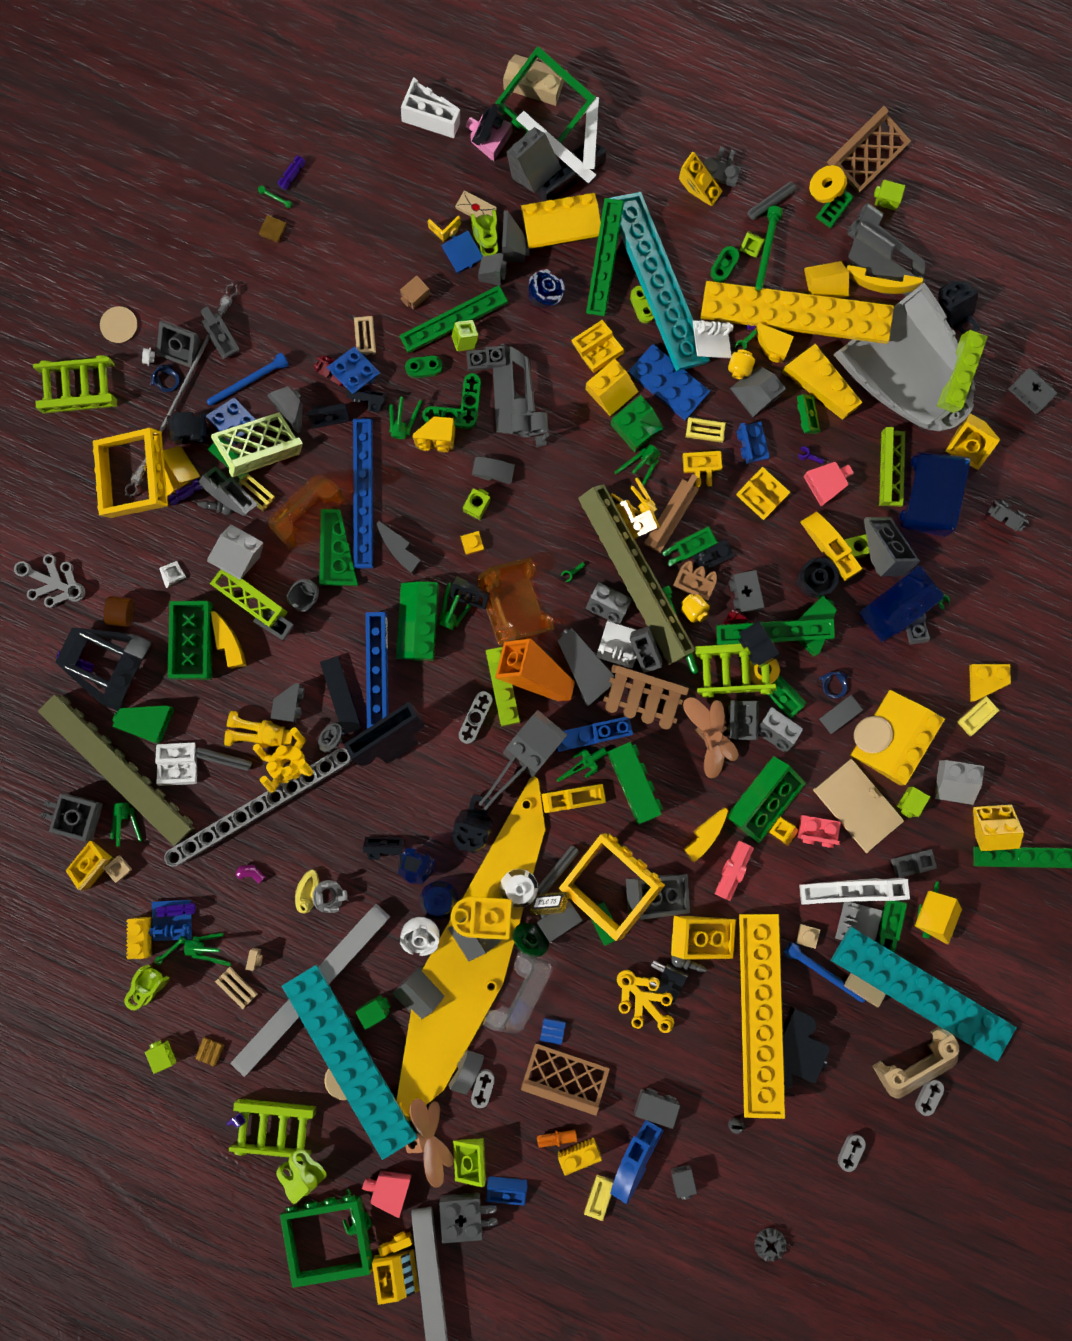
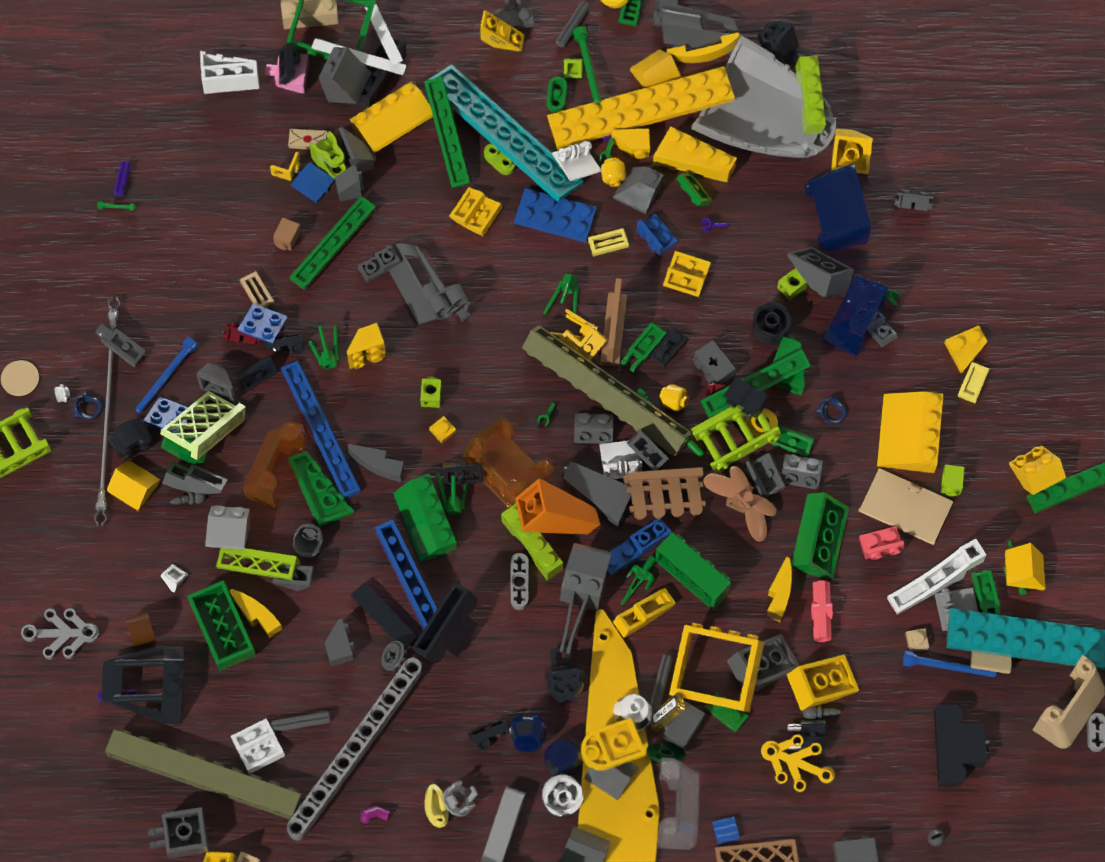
camera: 25 degrees left, 15 degrees down
(121, 812) = (226, 812): green plant -> none
(144, 722) = (209, 719): green slope -> none
(155, 473) = (118, 479): yellow window -> none
(177, 344) = (86, 370): dark grey slope -> none
(184, 492) = (152, 498): dark purple axle -> none
(267, 502) = (223, 465): light yellow tile -> none
(268, 733) = (332, 681): yellow piece -> none
(272, 229) = (127, 234): pearl gold piece -> none
(279, 758) = (356, 690): yellow plate -> none
(424, 368) = (325, 295): green plate -> none
(460, 414) = (379, 319): green beam -> none
(464, 335) = (351, 251): lime brick -> none
(493, 469) = (429, 356): dark grey slope -> none
(545, 289) = (405, 181): clear blue cone -> none
(611, 387) = (506, 240): yellow slope -> none
(637, 423) = (544, 262): green slope -> none
(695, 582) = (663, 375): medium nougat plate -> none
(702, 462) = (621, 269): yellow hinge -> none
(762, 1016) = (909, 724): yellow plate -> none
(784, 831) = (850, 557): yellow slope -> none
(827, 481) = (739, 239): coral torso -> none
(832, 544) = (769, 288): yellow slope -> none
(841, 714) = (850, 433): dark grey slope -> none
(855, 1154) = (1046, 813): light grey beam -> none
(873, 734) = (888, 437): tan piece -> none
(887, 467) = (787, 206): lime fence -> none
(913, 863) = (982, 531): dark grey slope -> none
(958, 781) = (983, 445): light grey slope -> none
(1036, 399) = (873, 90): dark grey brick -> none

